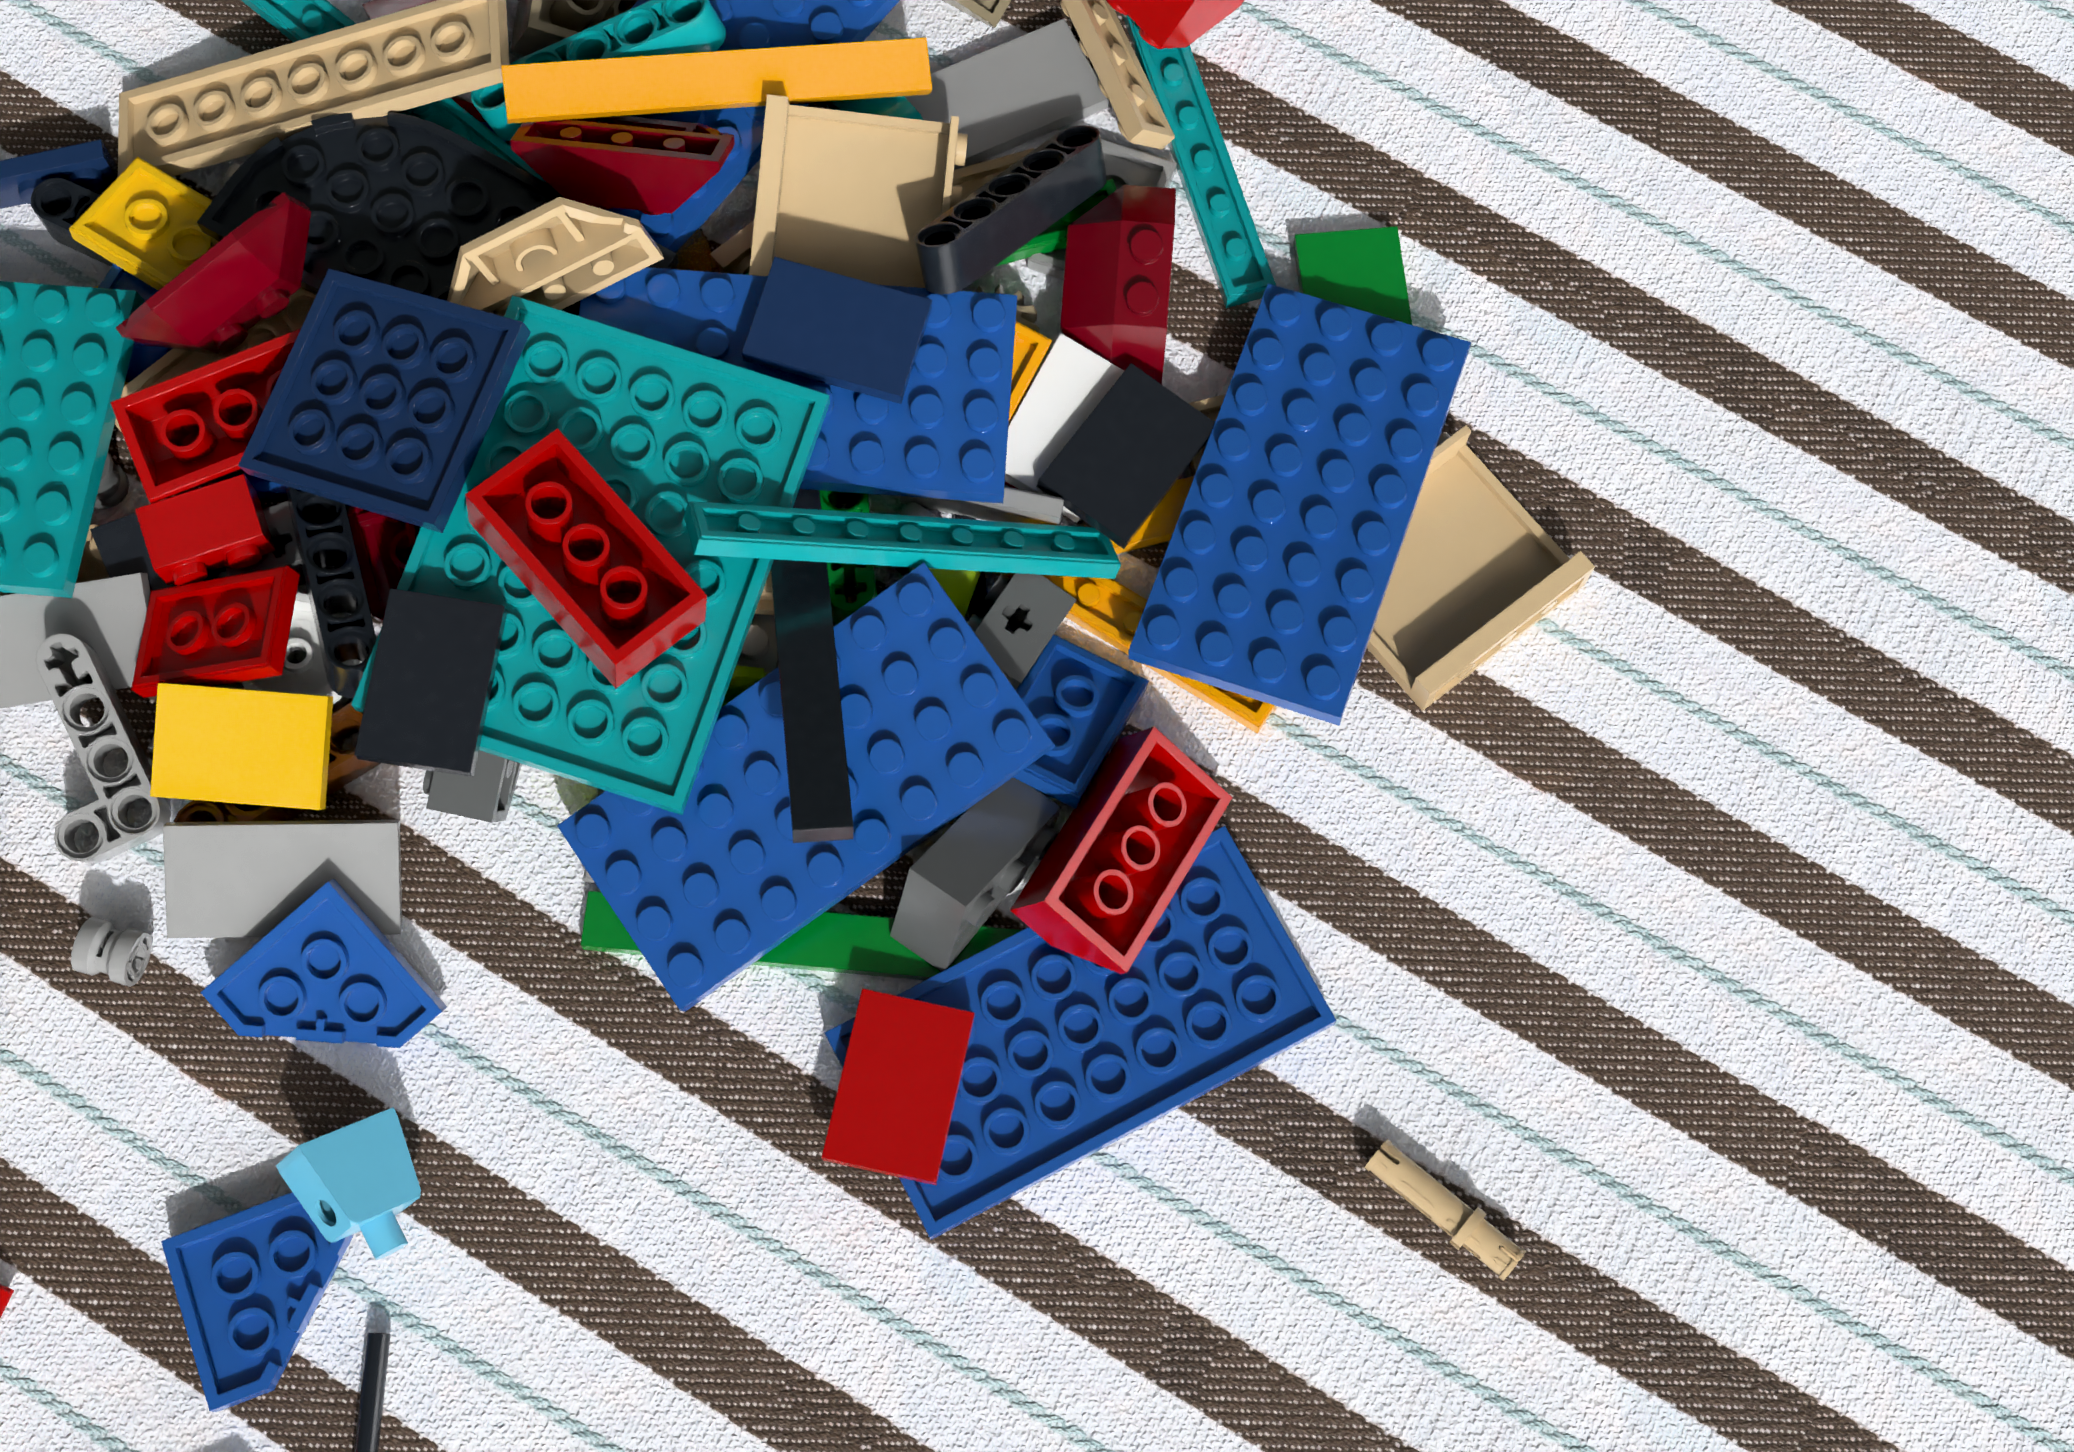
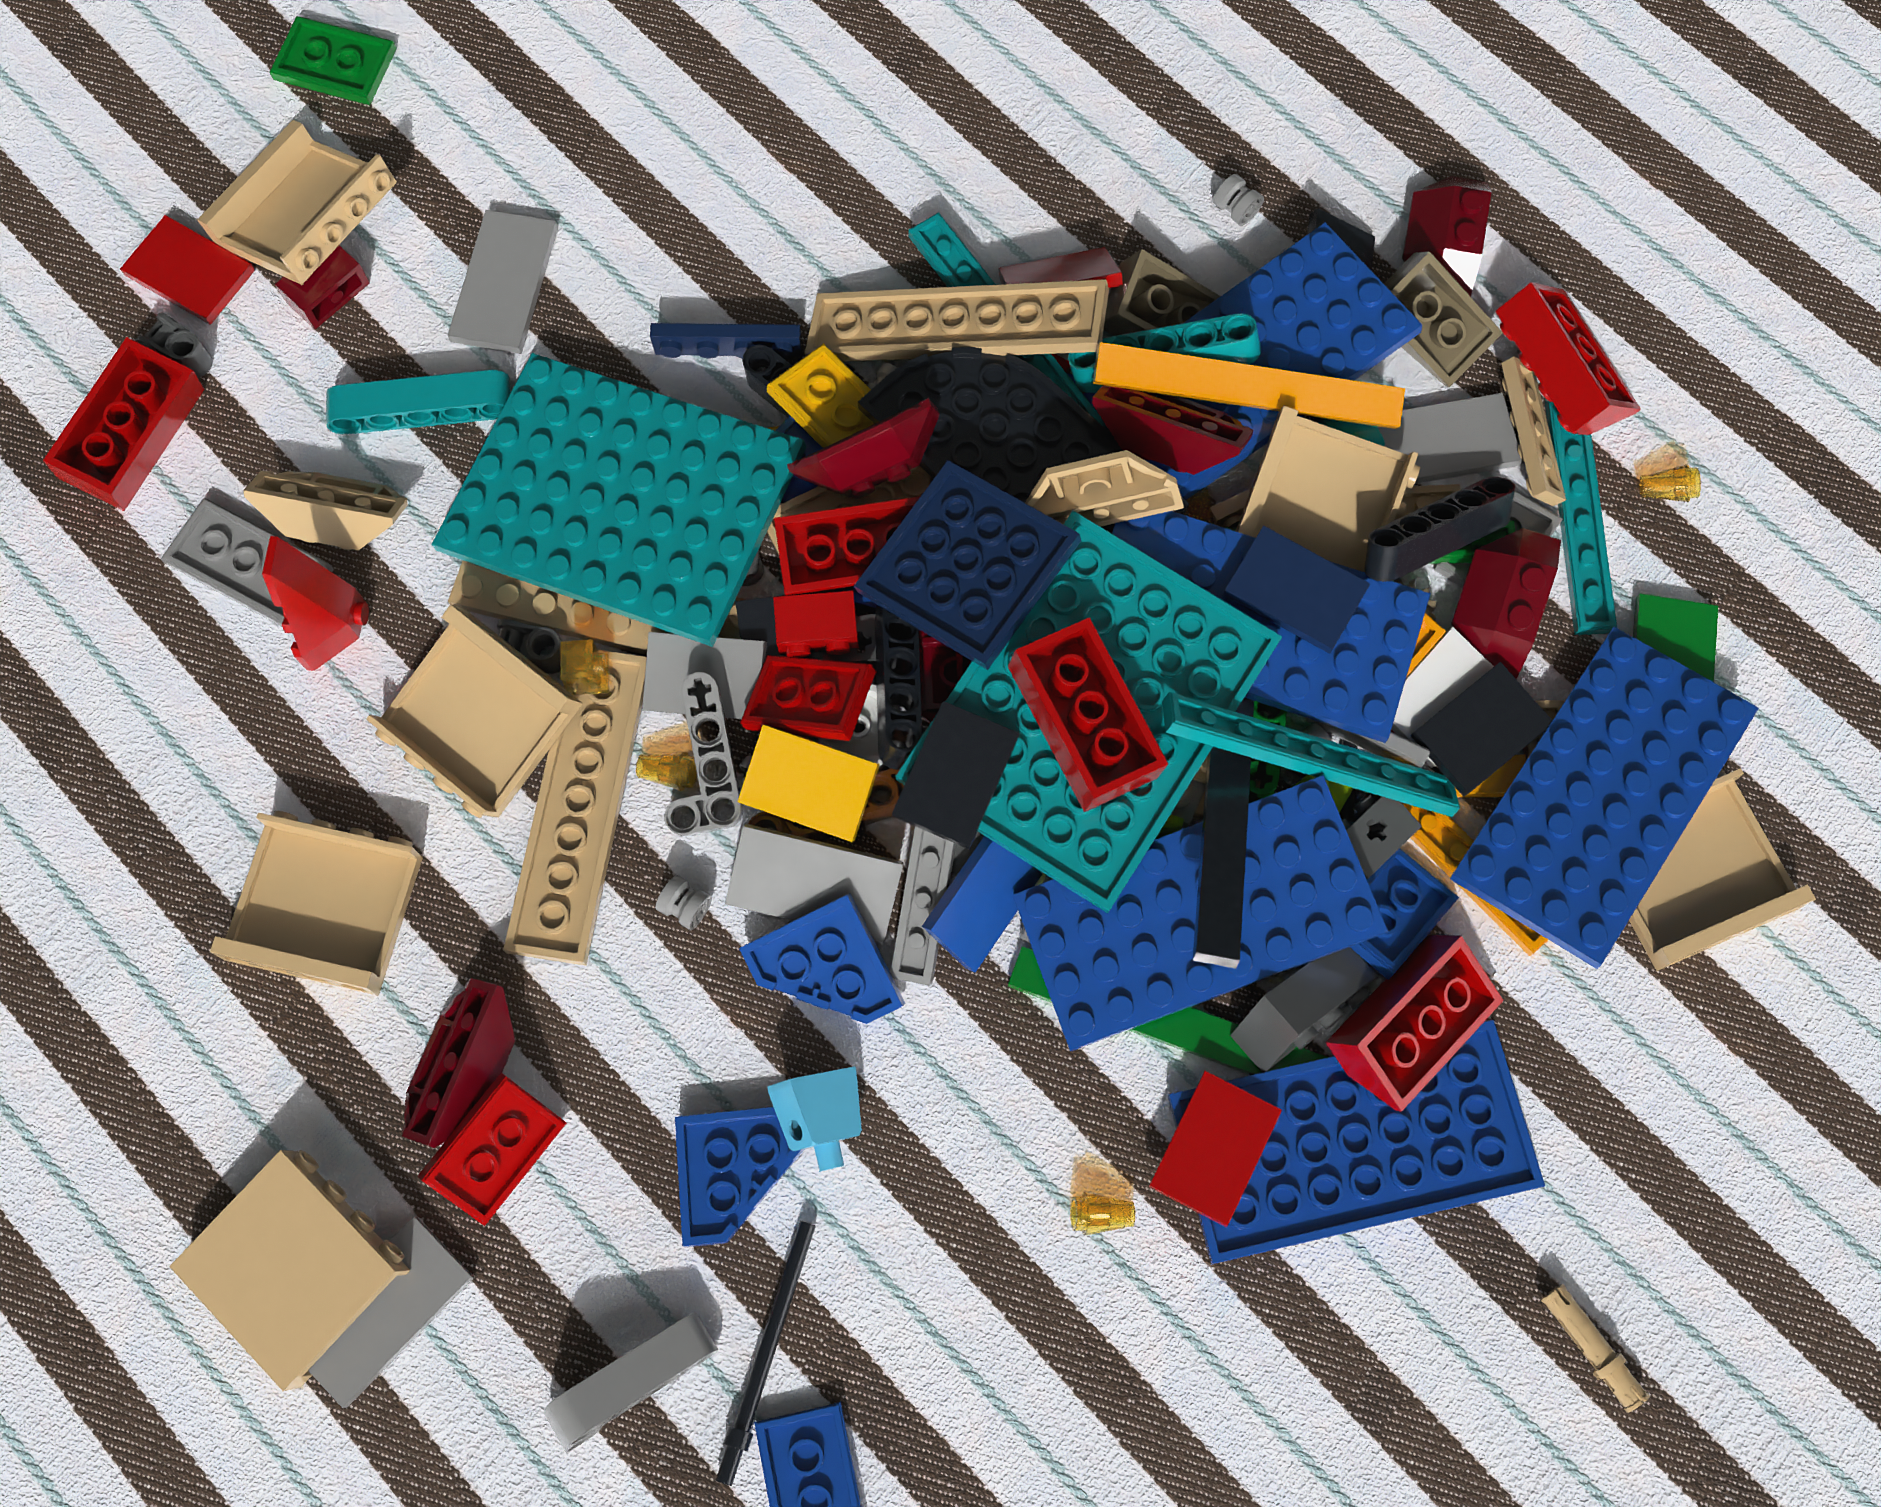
camera: 20 degrees right, 0 degrees up
(49, 779) = (668, 769): none -> clear yellow cone
(439, 873) = (925, 885): none -> light grey plate
(514, 848) = (980, 903): none -> blue tile
(768, 1213) = (1100, 1213): none -> clear yellow cone
(1305, 86) = (1672, 484): none -> clear yellow cone

